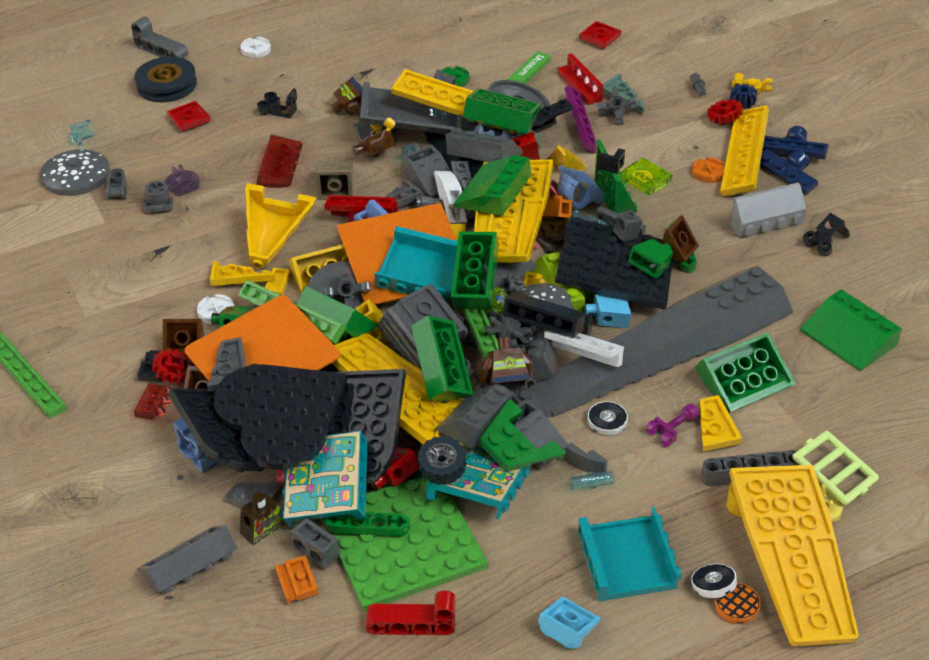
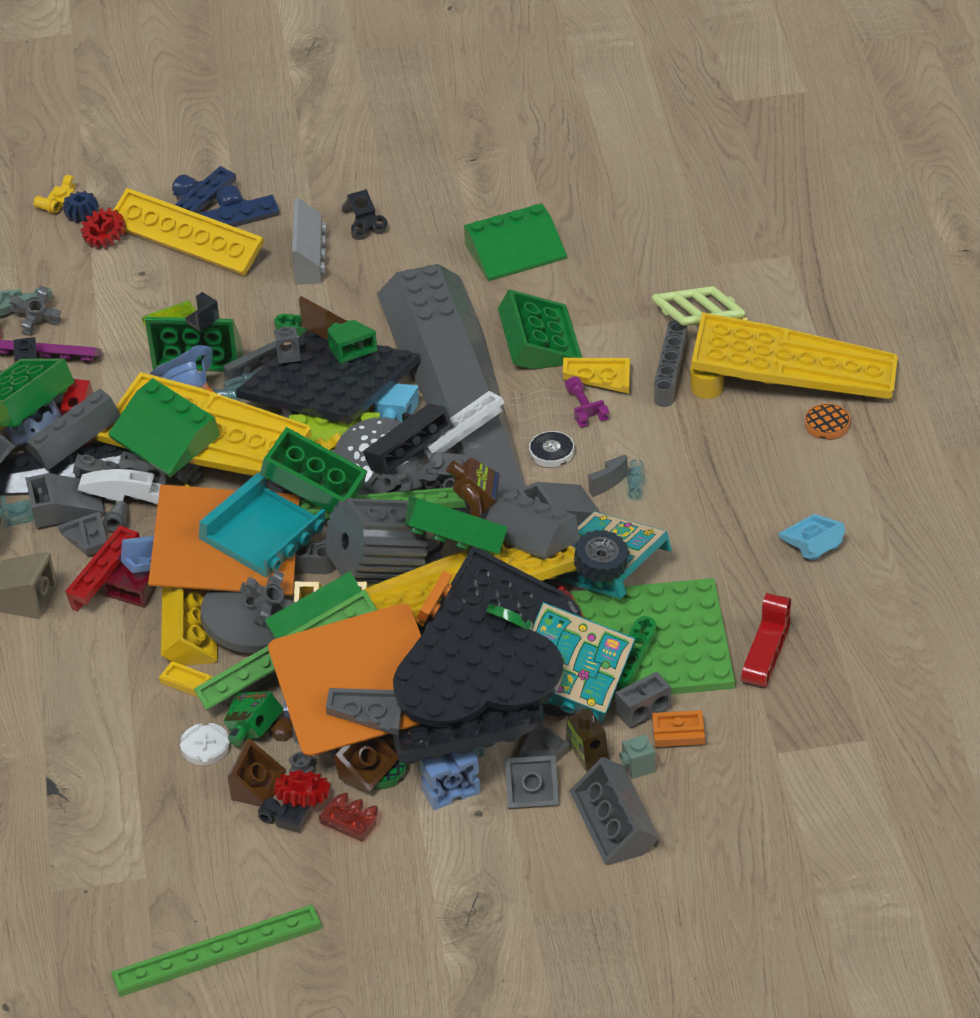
camera: 70 degrees left, 0 degrees up
(210, 498) = (531, 782): none -> dark grey slope
(237, 275) = (153, 716): yellow wing -> none
(252, 557) = (638, 756): none -> sand green brick
(271, 223) = (90, 653): yellow cone -> none
(335, 414) = (508, 616): none -> green tile
(341, 363) = (431, 606): none -> orange plate
(510, 446) = (592, 511): green wing -> none
(566, 158) = (110, 379): yellow slope -> none
(629, 556) = (743, 476): teal panel -> none
(698, 84) = (31, 236): dark grey axle -> none
(708, 170) = (193, 273): orange tile -> none
(714, 580) = (800, 425): tile -> none

